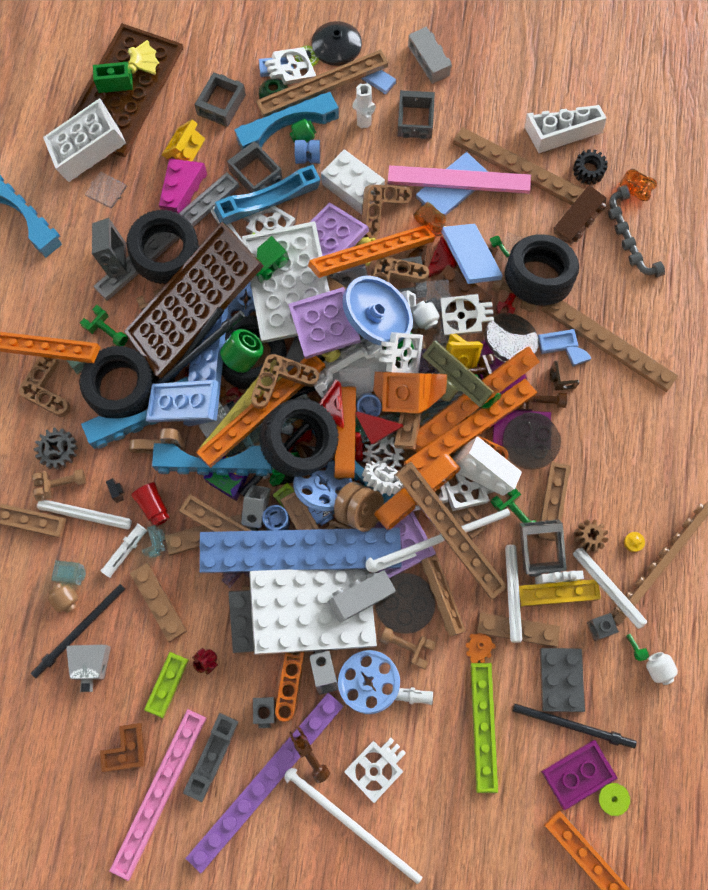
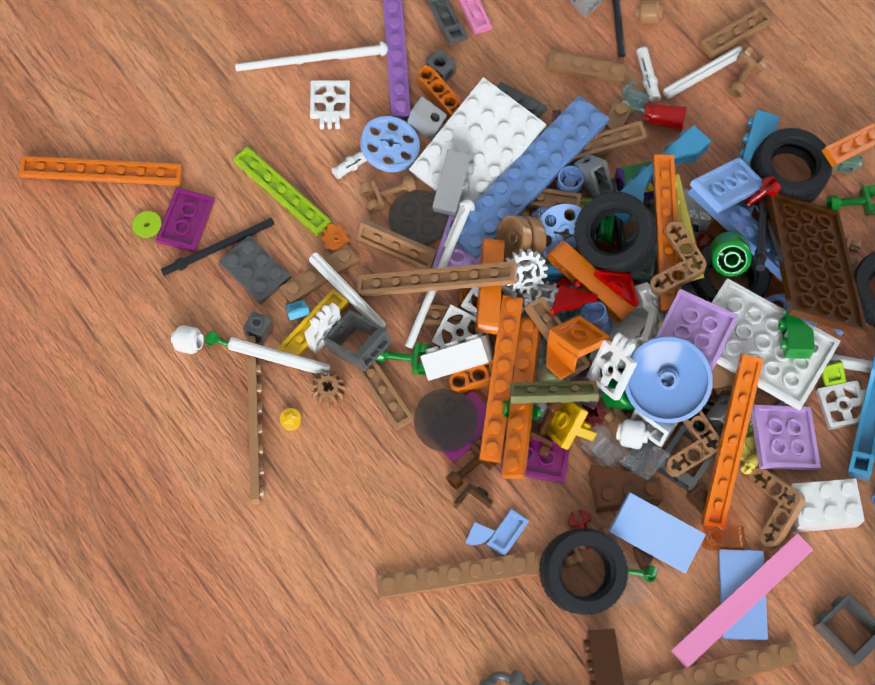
camera: 130 degrees right, 5 degrees down
(37, 386) = (844, 118): medium nougat beam -> none
(61, 441) = (776, 90): dark grey gear -> none
(68, 573) = (666, 28): clear light blue brick -> none
(115, 489) = (702, 102): black plate -> none
(161, 378) = (770, 187): none -> red bar
(166, 685) = (522, 28): lime tile -> none
(167, 436) = (708, 154): medium nougat beam -> none
(205, 661) = (513, 58): dark red gear -> none
(302, 745) = (393, 63): reddish brown bar -> none
(441, 258) = (677, 508): red tile -> none
(479, 313) = (593, 476): white piece -> none
(510, 335) = (547, 491): clear smoke tile -> none
(560, 615) = (297, 309): none -> medium azure tile

